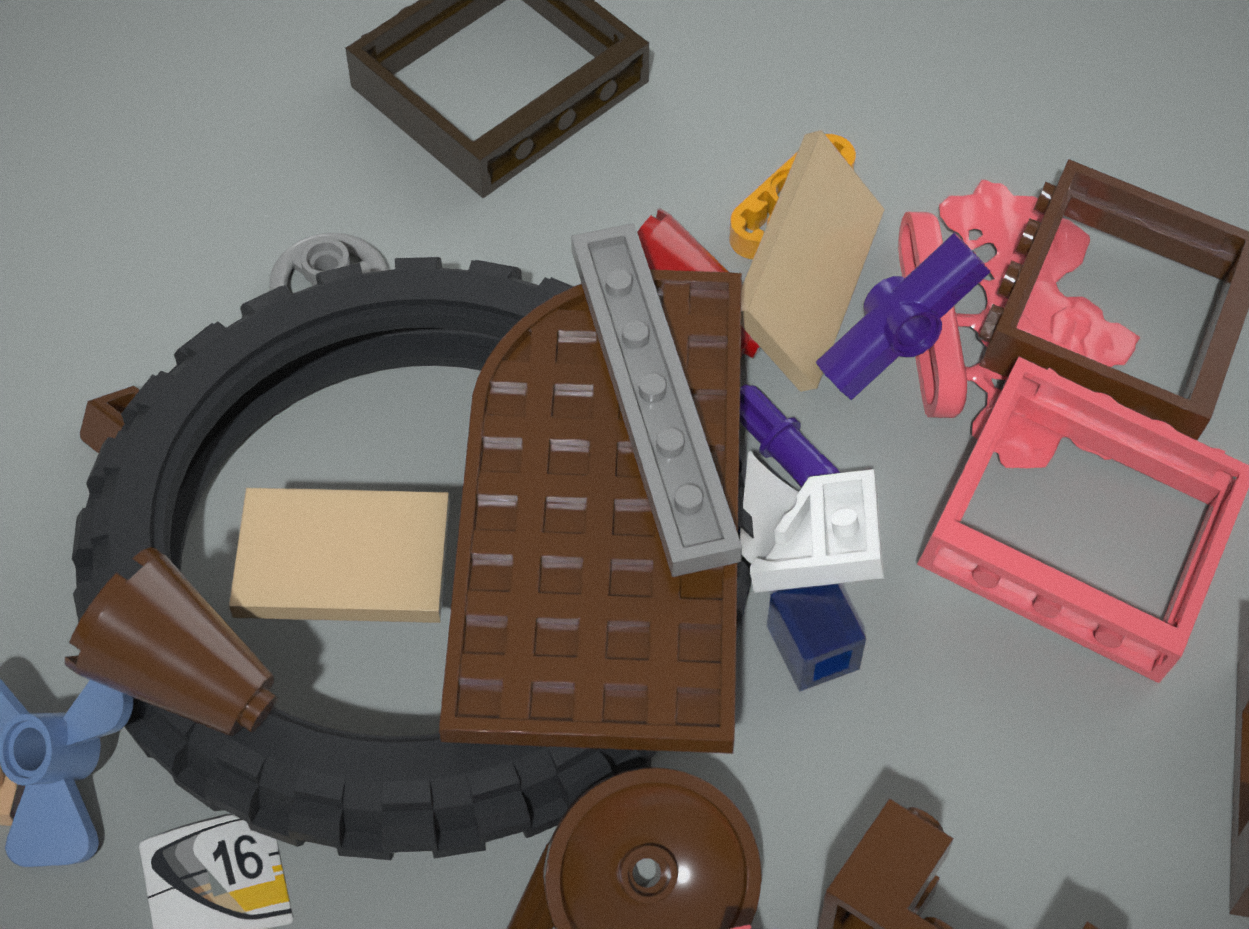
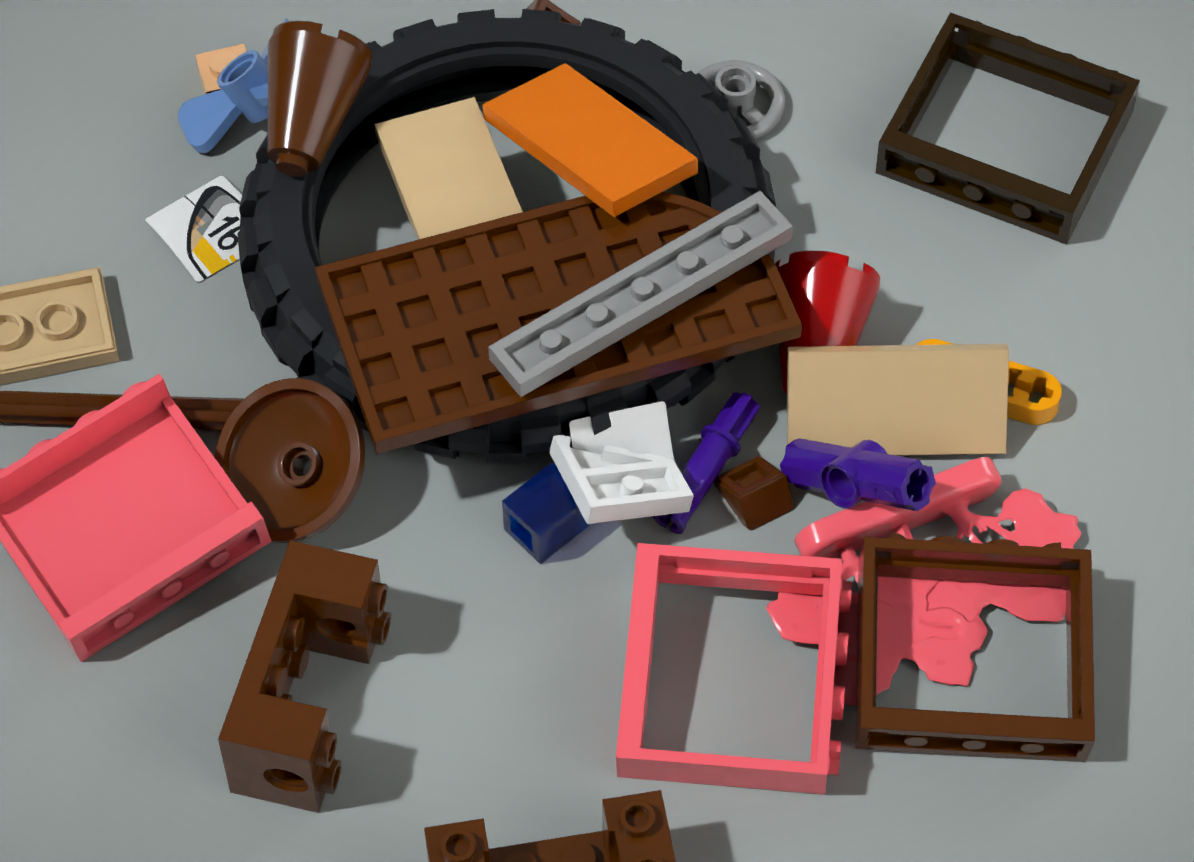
camera: 70 degrees right, 0 degrees up
(385, 386) = (590, 139): none -> orange tile
(847, 431) = (755, 492): none -> reddish brown slope

